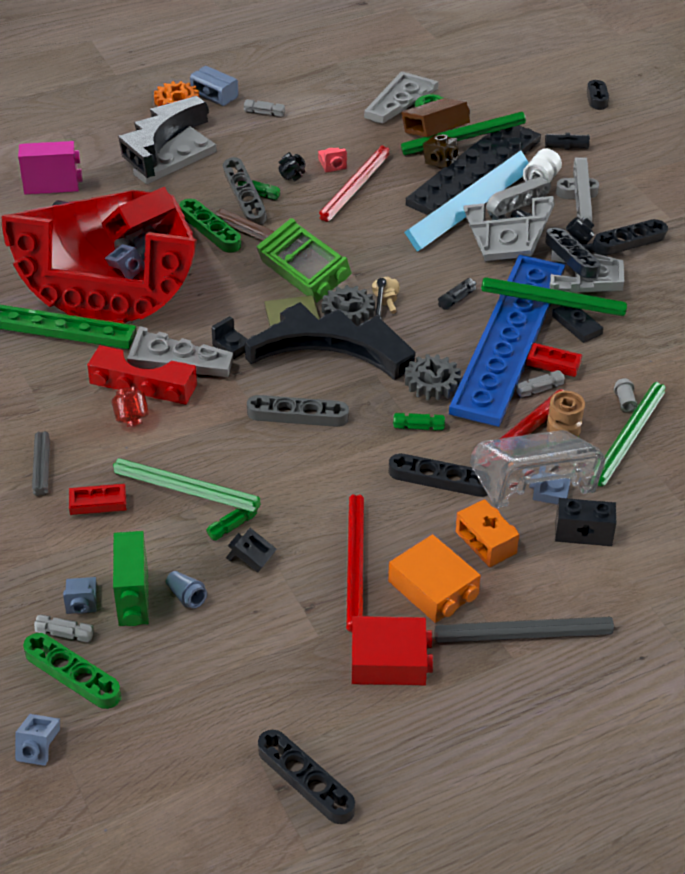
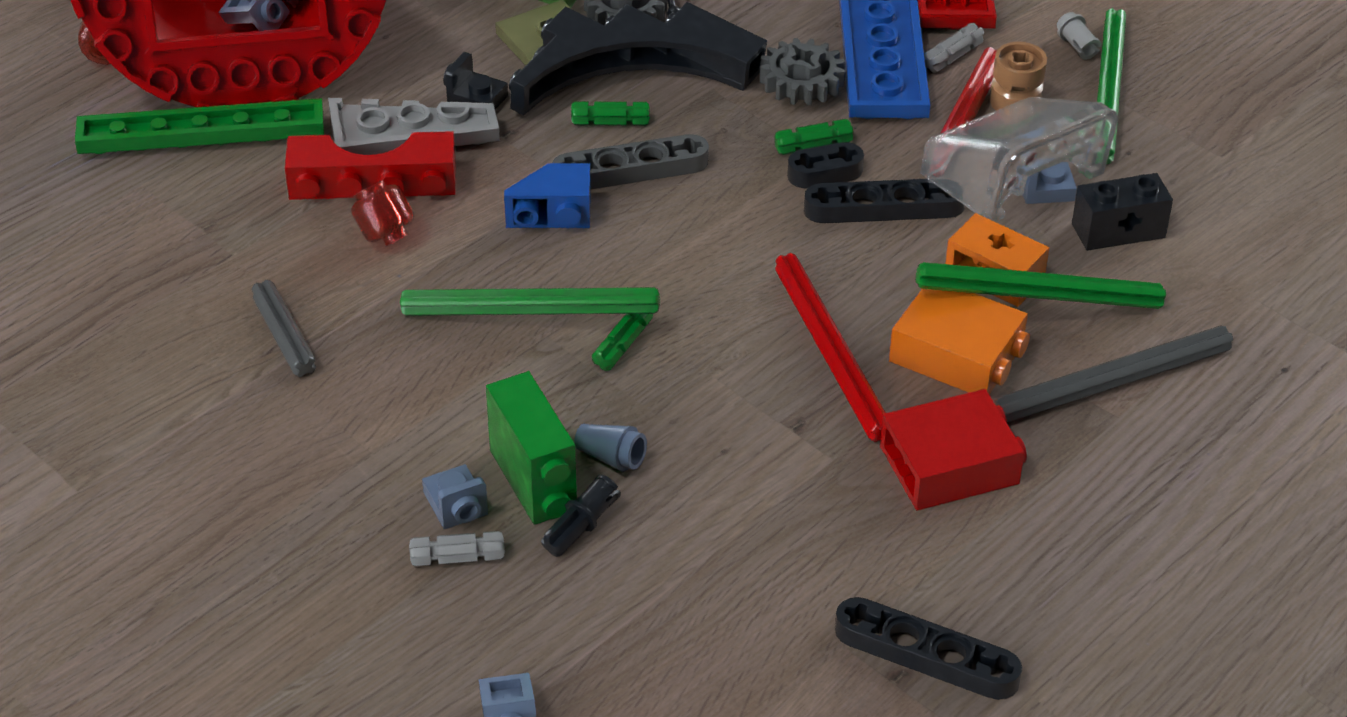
camera: 20 degrees left, 0 degrees up
(68, 673) = (500, 609): green beam -> none
(97, 499) = (403, 356): red plate -> none
(143, 628) = (581, 515): none -> black axle
(235, 421) = (550, 198): none -> blue slope
(251, 549) = (677, 365): black bracket -> none
(302, 375) = (610, 113): none -> green axle
(416, 442) = (825, 164): none -> black beam
(501, 558) = (1040, 285): none -> green axle

